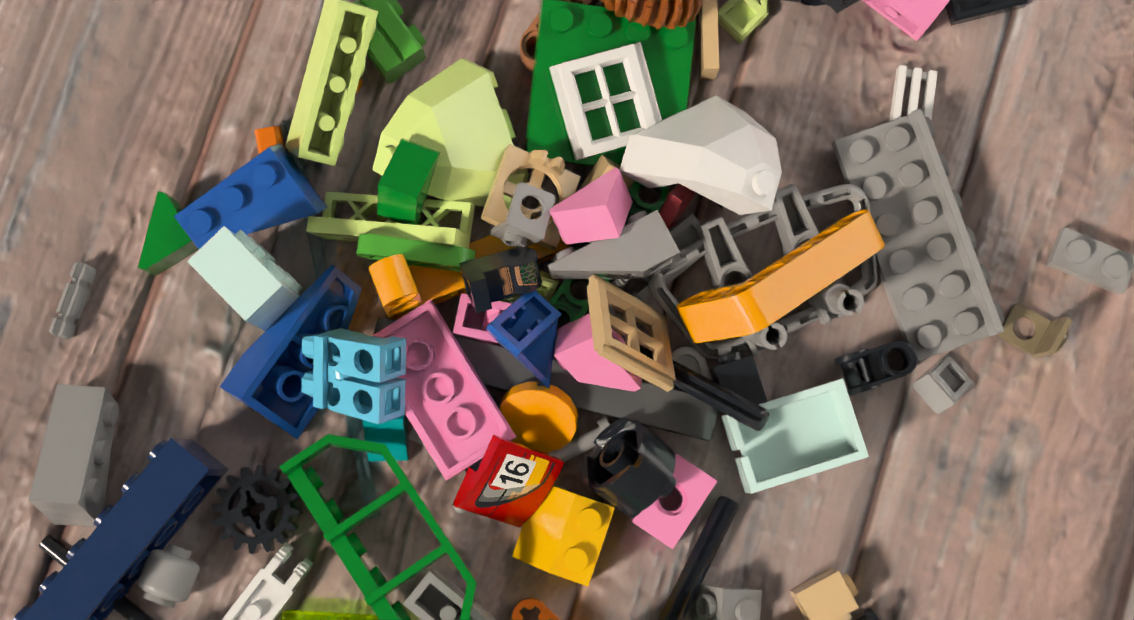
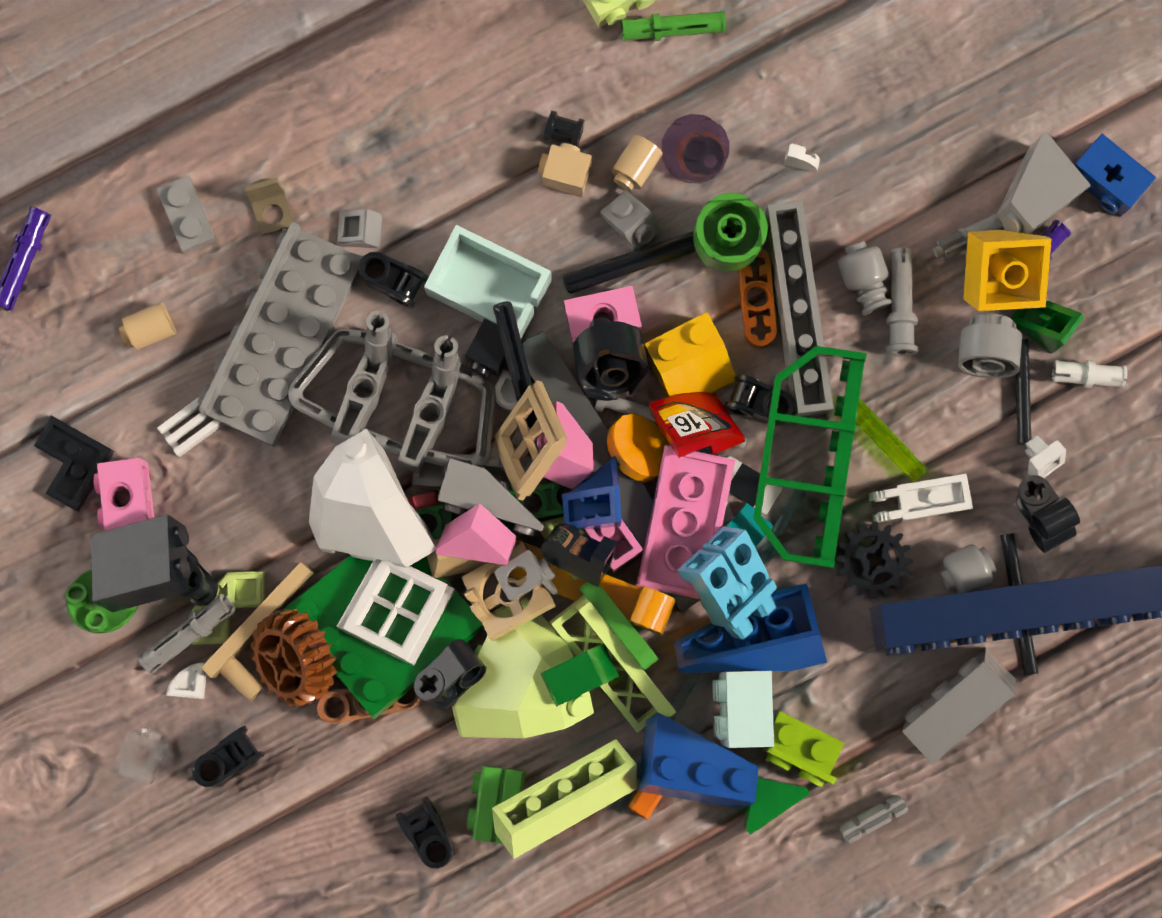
camera: 135 degrees left, 0 degrees up
(174, 299) = (804, 748): none -> lime bracket
(423, 476) = (745, 486): none -> black sticker
(479, 554) = (756, 400): none -> black piece
(514, 88) = (451, 674): none -> black piece
(783, 284) = (402, 374): light orange beam -> none
(1027, 140) = (147, 326): none -> tan brick

